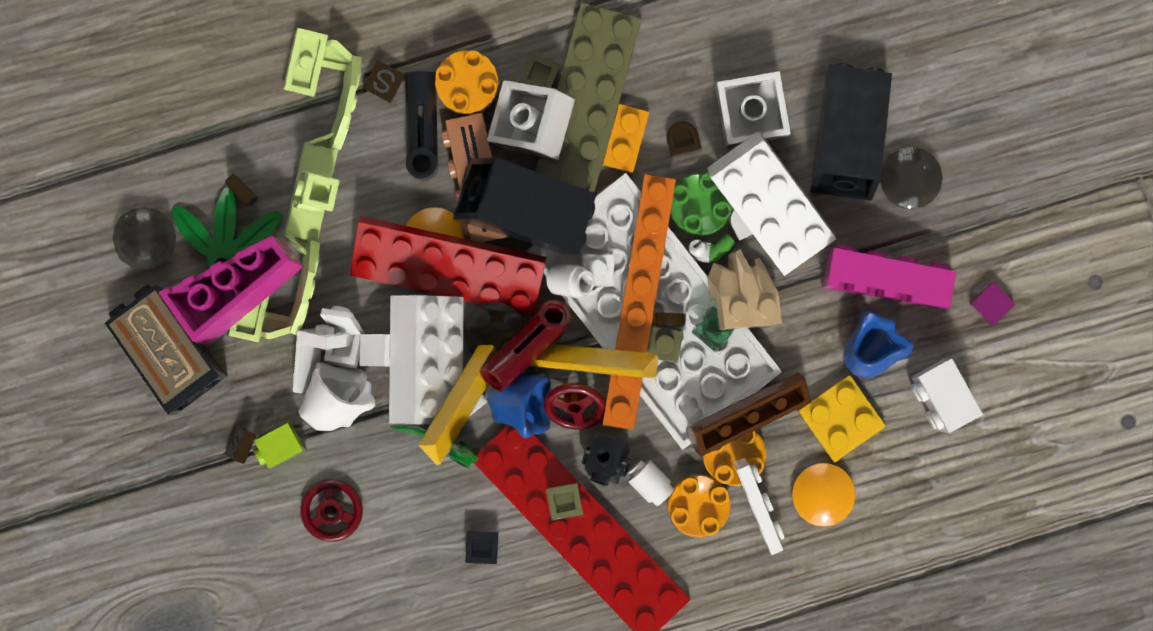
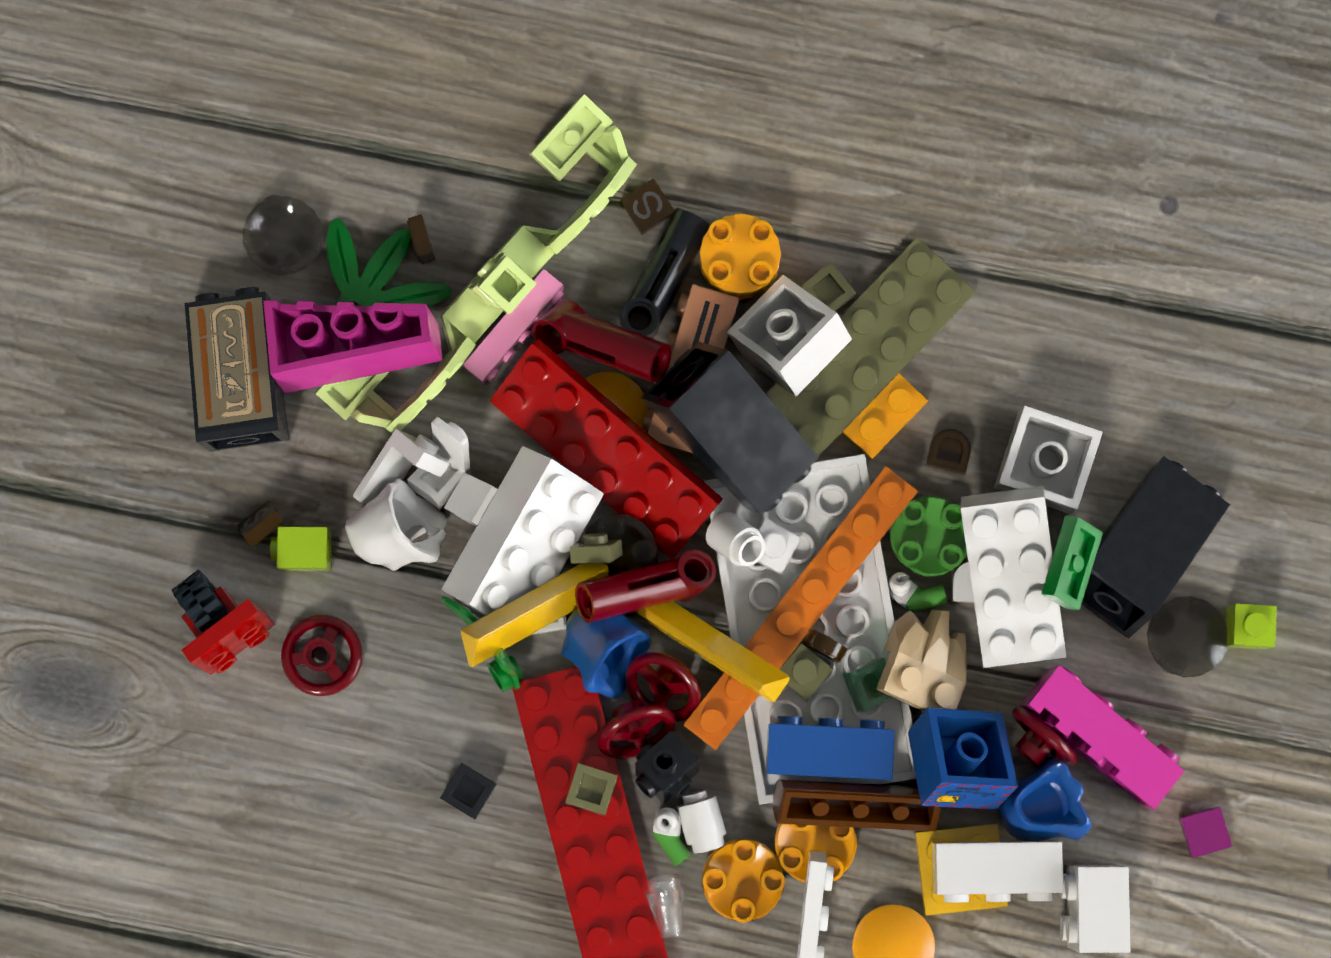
camera: 25 degrees right, 5 degrees down
(250, 527) = (218, 623): none -> red plate
(336, 221) = (513, 329): none -> bright pink piece
(380, 196) = (570, 329): none -> dark red piece
(479, 338) = (596, 549): none -> olive plate
(568, 441) = (633, 723): none -> dark red piece
(631, 502) = (667, 833): none -> arm
(655, 548) = (666, 902): none -> clear cone
(710, 387) = (830, 749): none -> blue brick
(802, 345) = (962, 759): none -> blue brick
(806, 174) = (1072, 563): none -> green plate
(849, 304) = (1041, 740): none -> dark red piece
(866, 407) = (997, 870): none -> white brick
(950, 148) = (1251, 626): none -> lime brick

